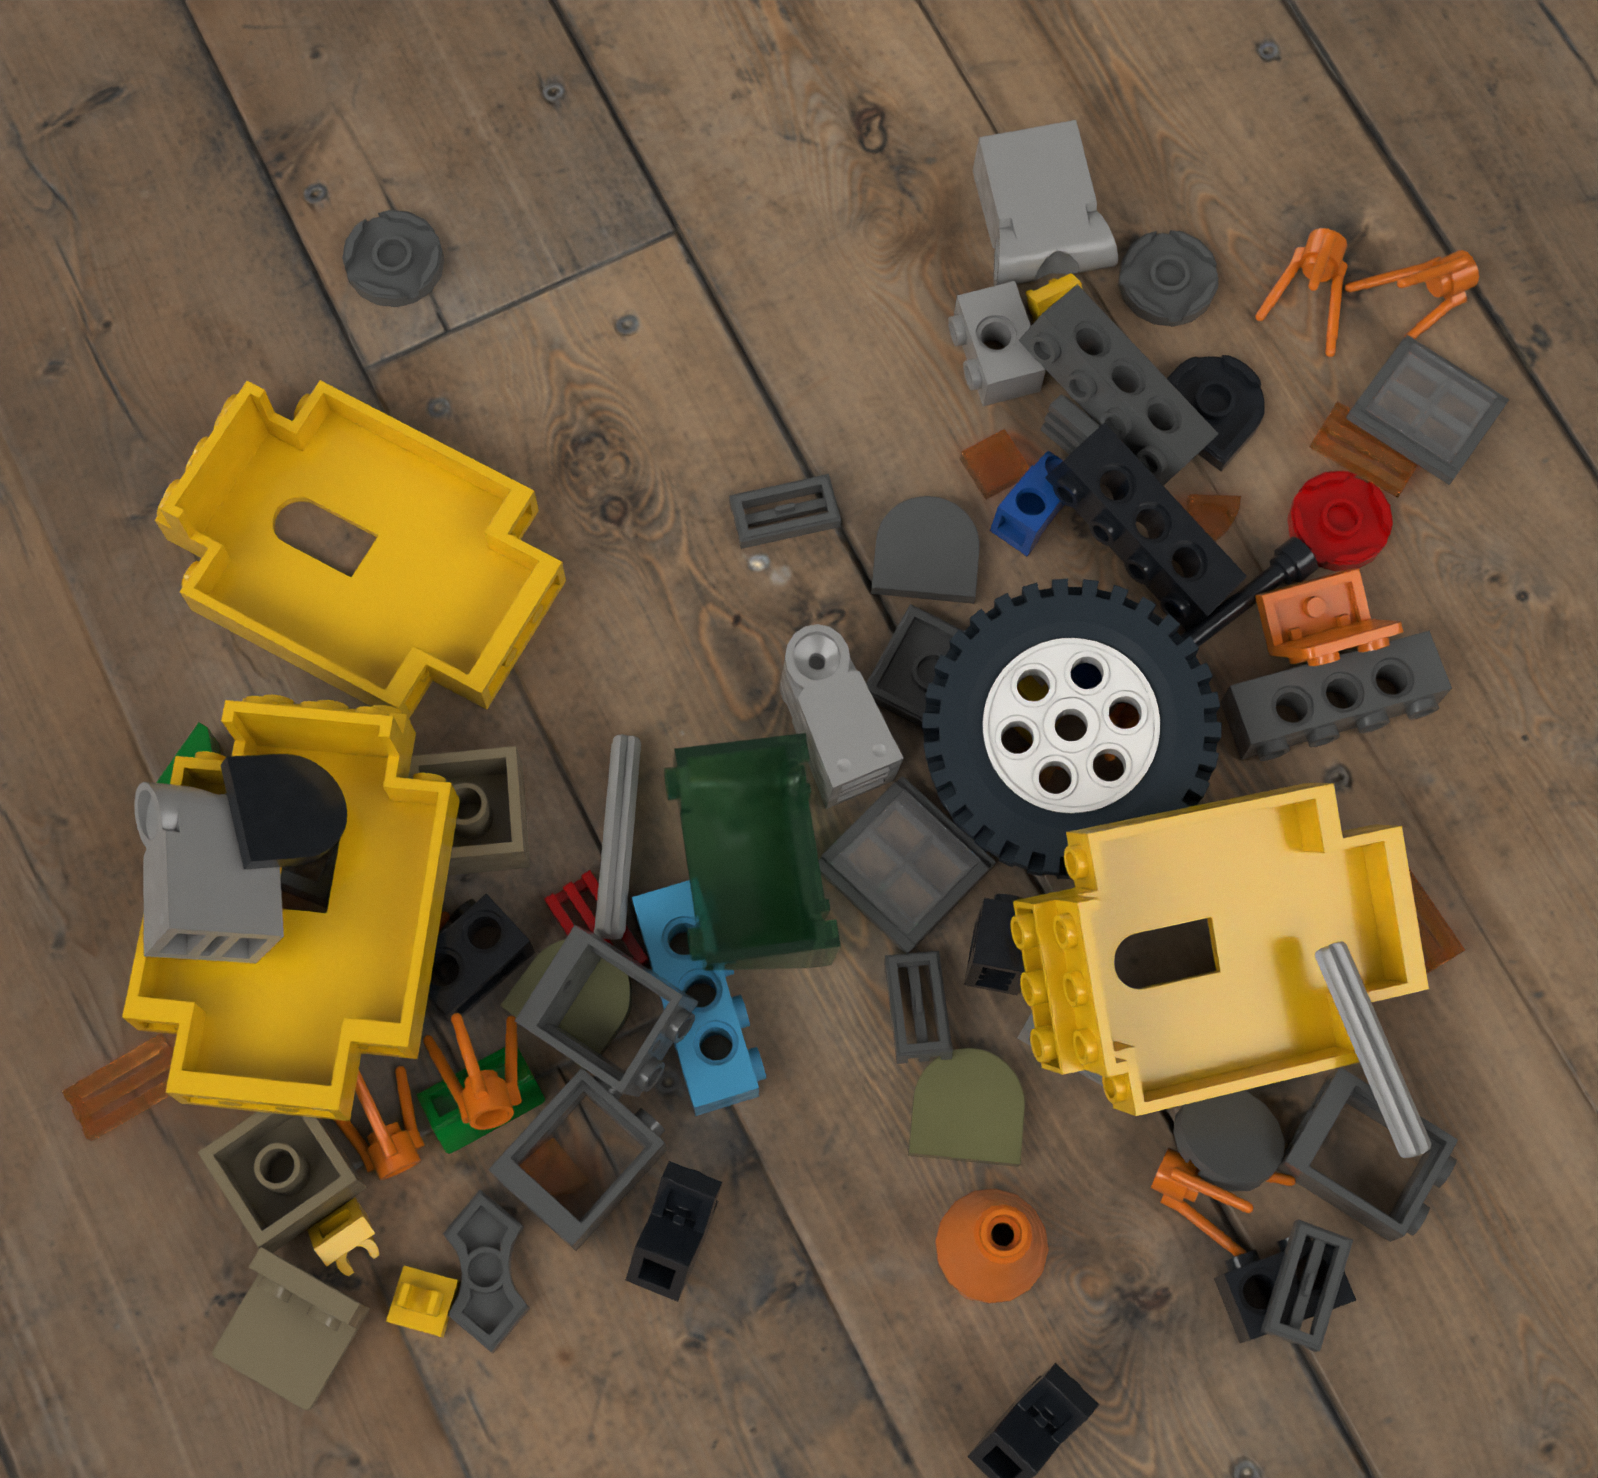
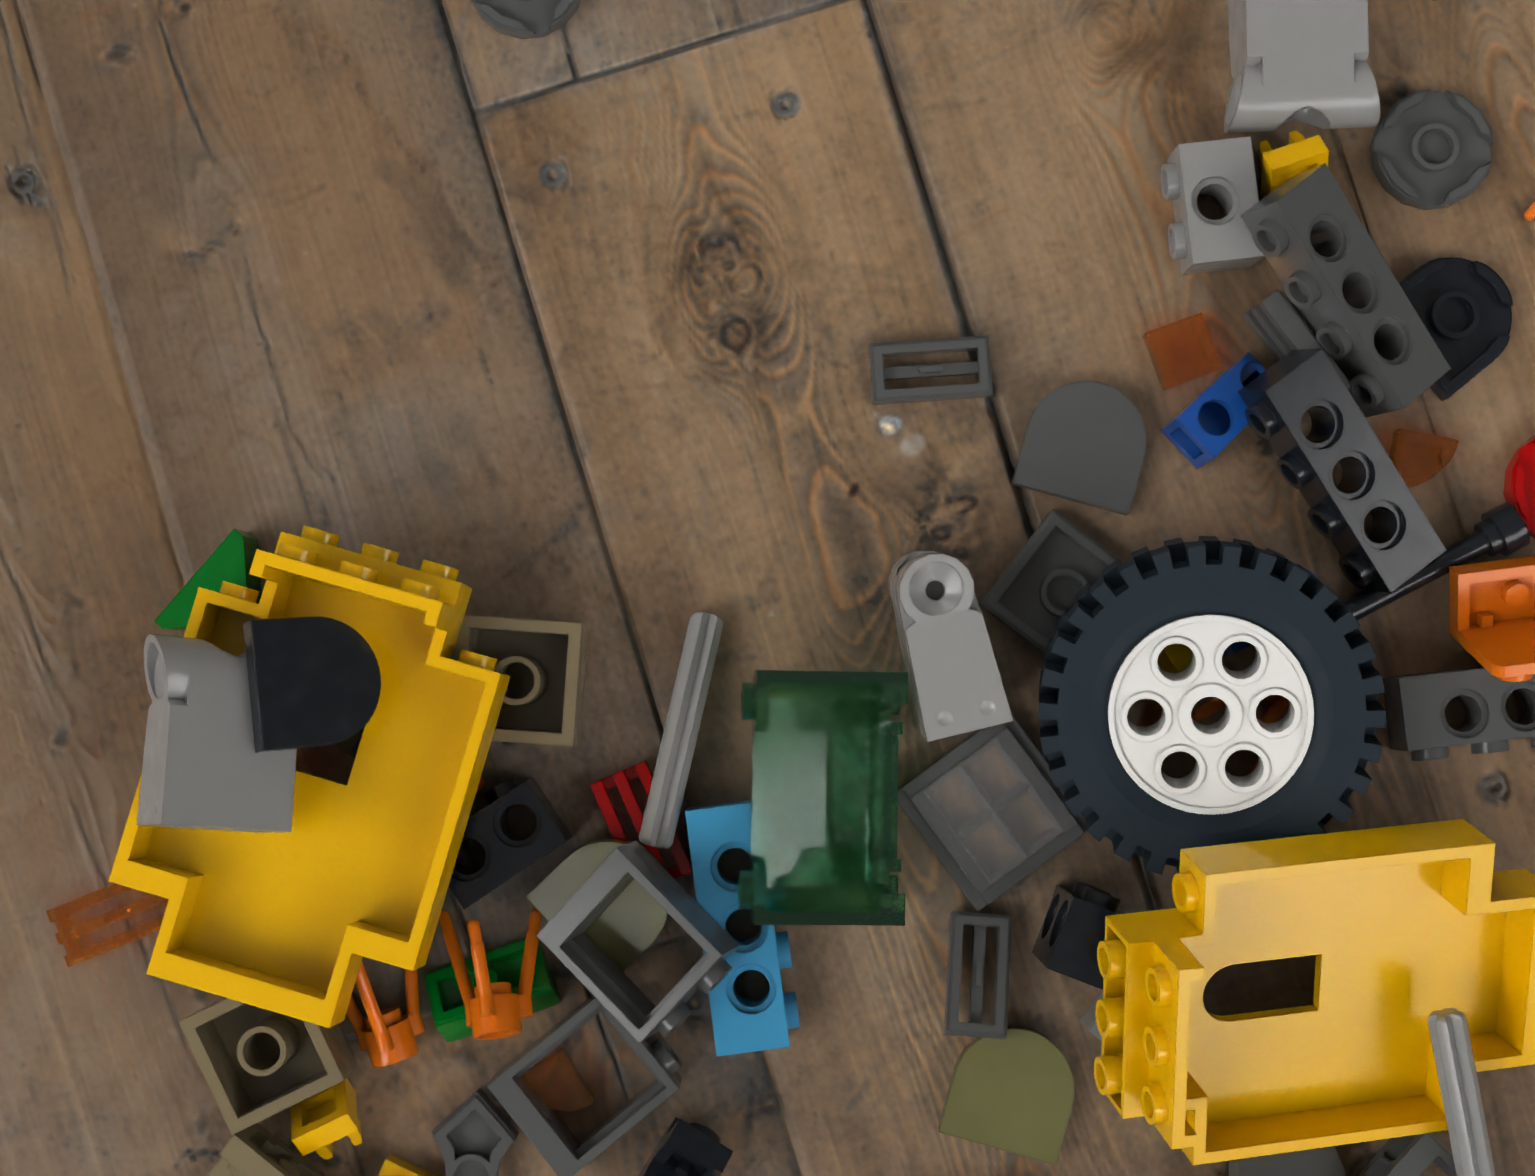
camera: 15 degrees right, 15 degrees up
(434, 599) = (515, 405): yellow panel -> none

